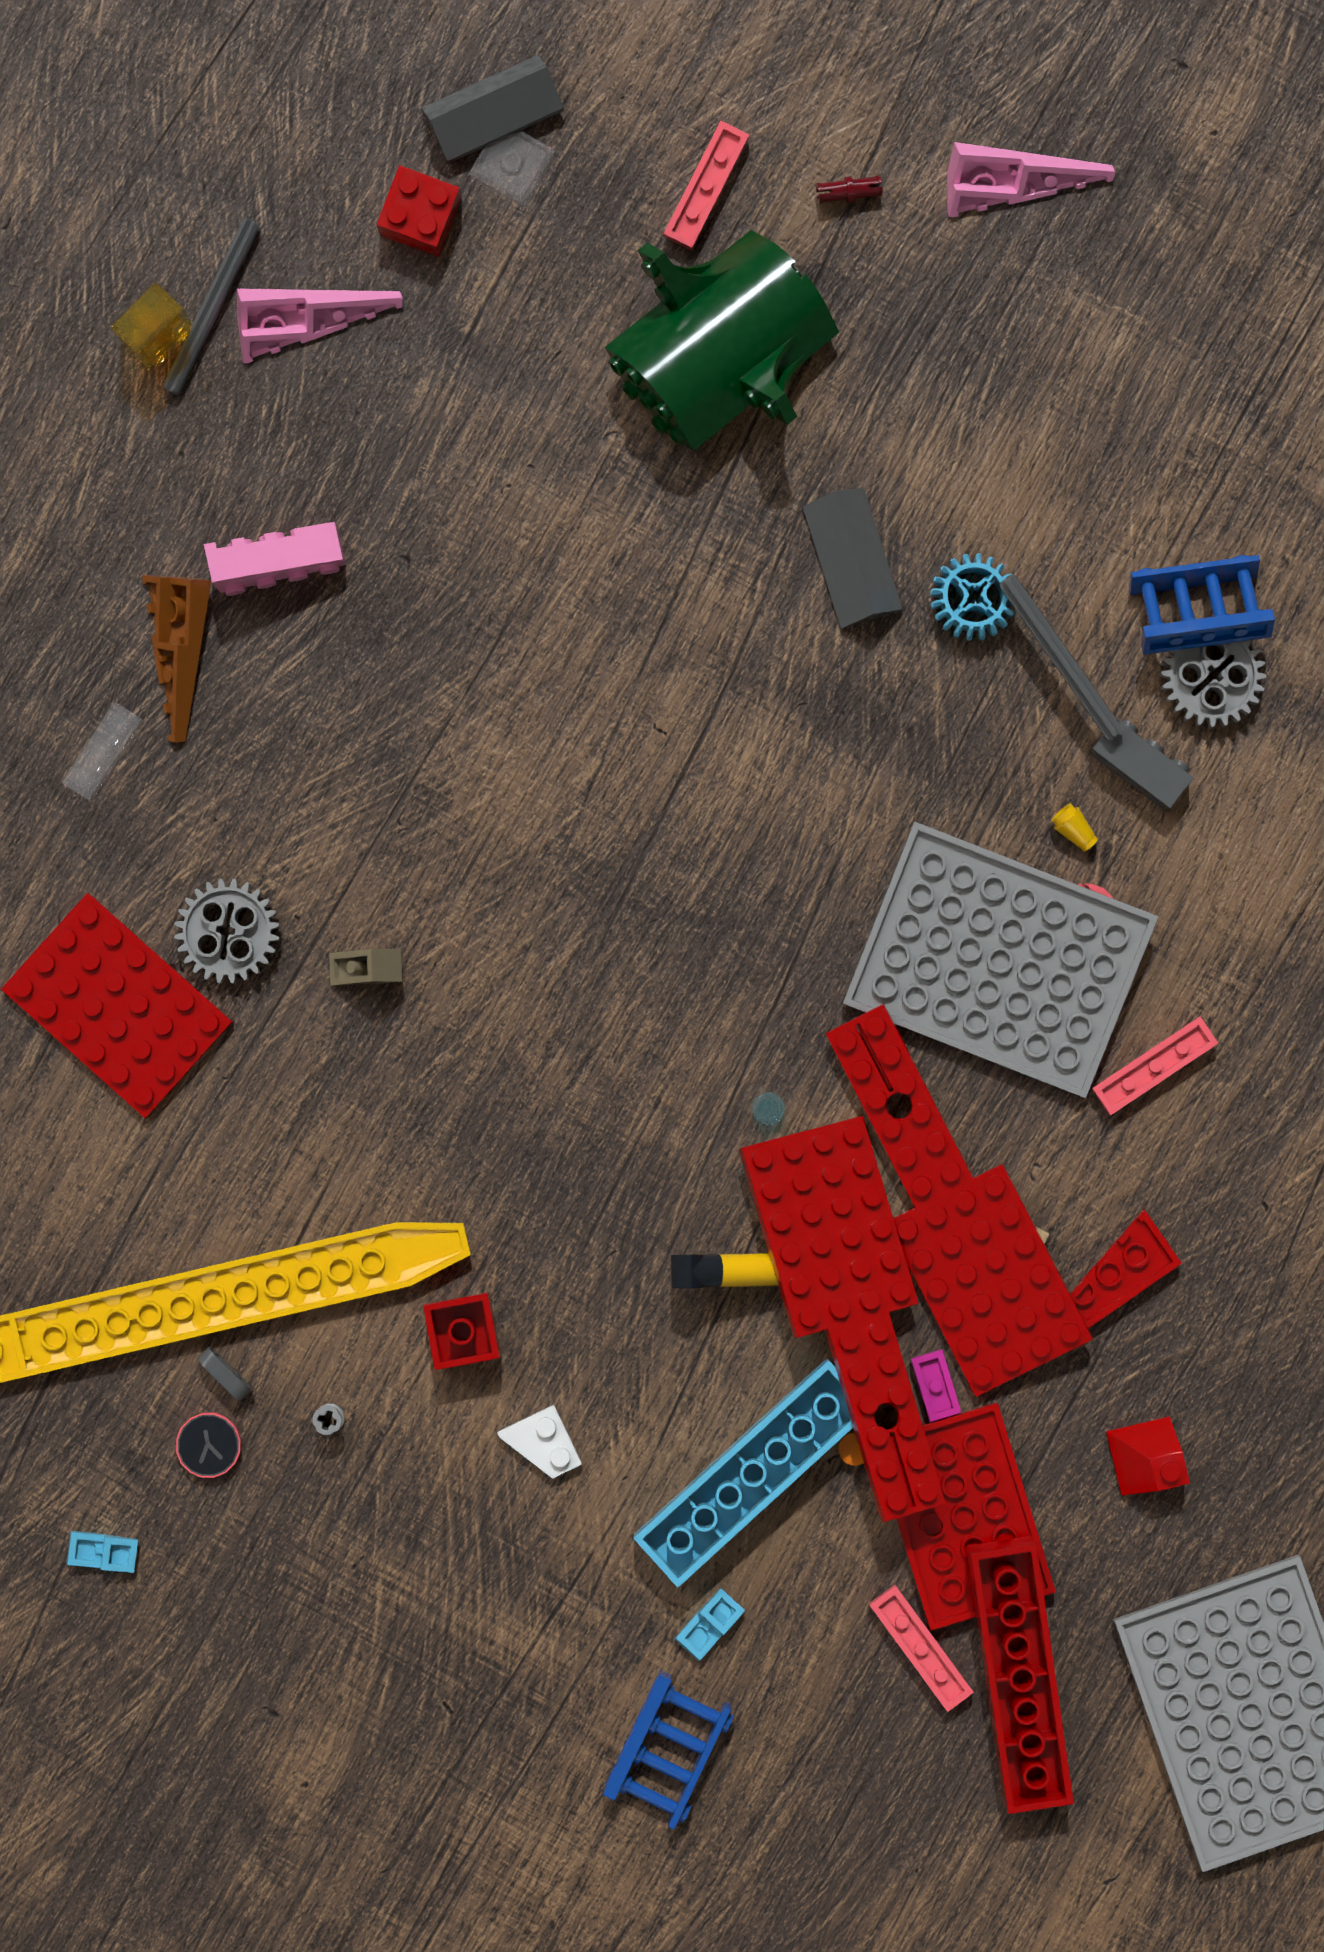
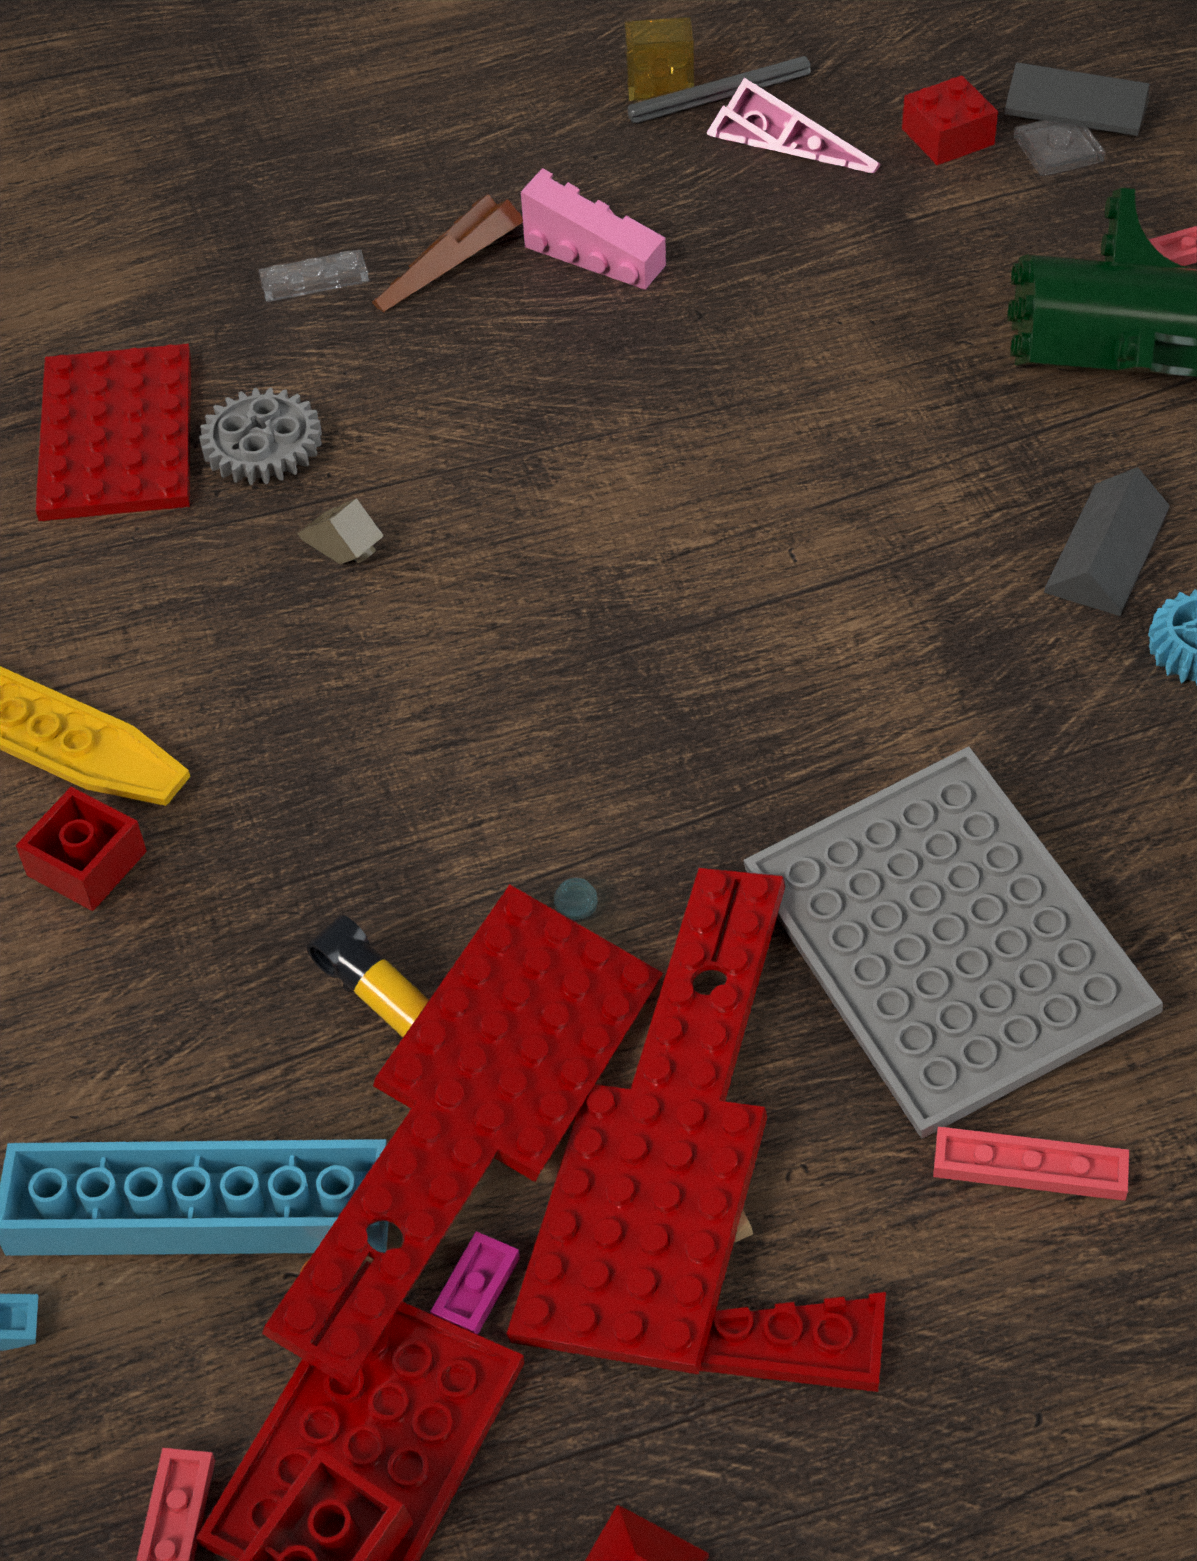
camera: 45 degrees right, 35 degrees down
(543, 1442) = (41, 1015): white wing -> none
(1074, 826) = (1139, 885): yellow cone -> none

